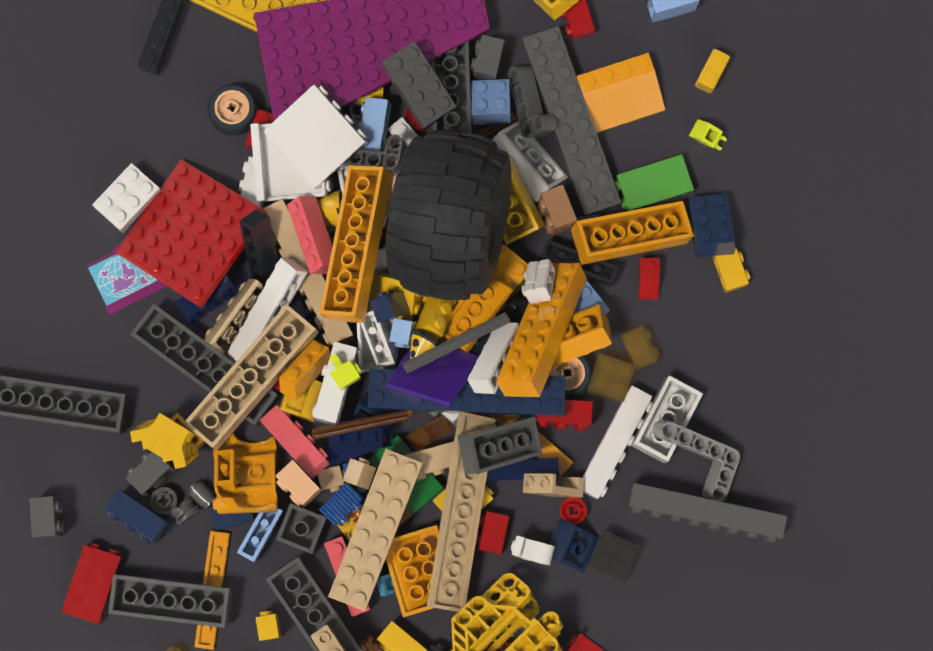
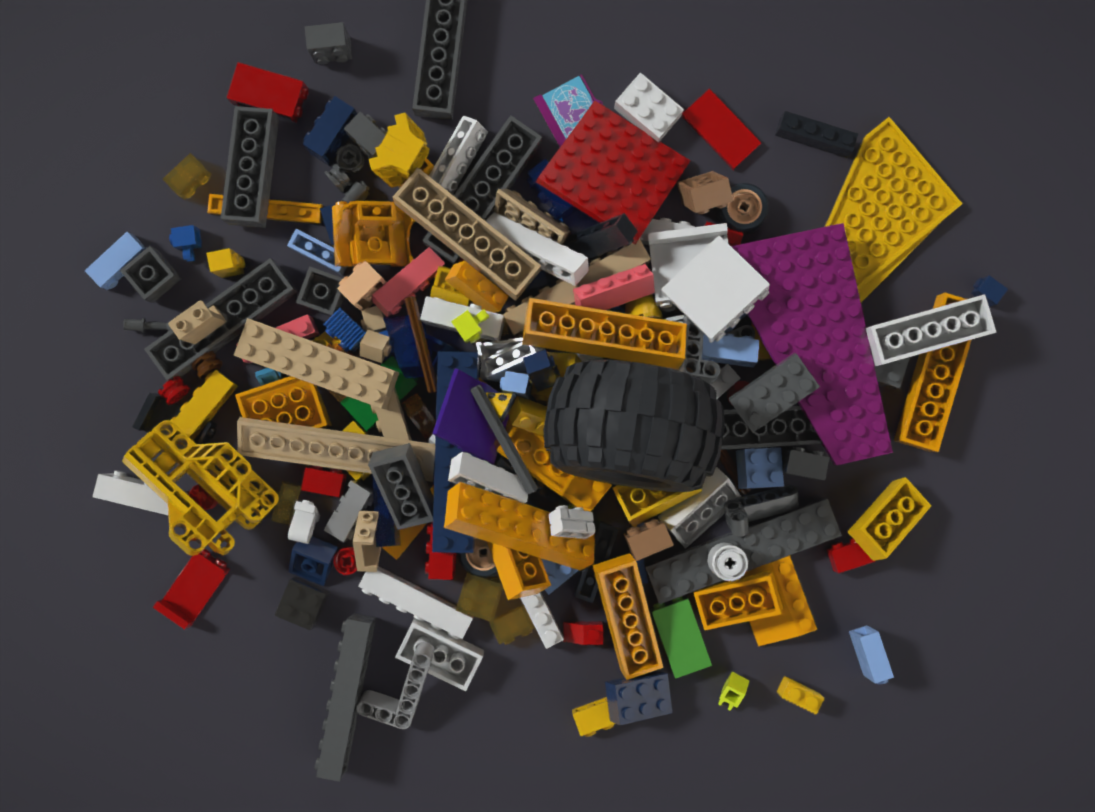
camera: 90 degrees right, 5 degrees up
(150, 127) = (721, 129): none -> red tile
(165, 388) = (458, 154): none -> white brick
(216, 144) = (705, 192): none -> medium nougat brick
(520, 568) = (284, 509): none -> clear yellow brick
(523, 506) = (345, 517): none -> light grey wedge
(572, 140) = (719, 555): none -> white piece
(619, 126) = (738, 600): none -> light orange brick
(634, 317) = (543, 619): none -> white brick

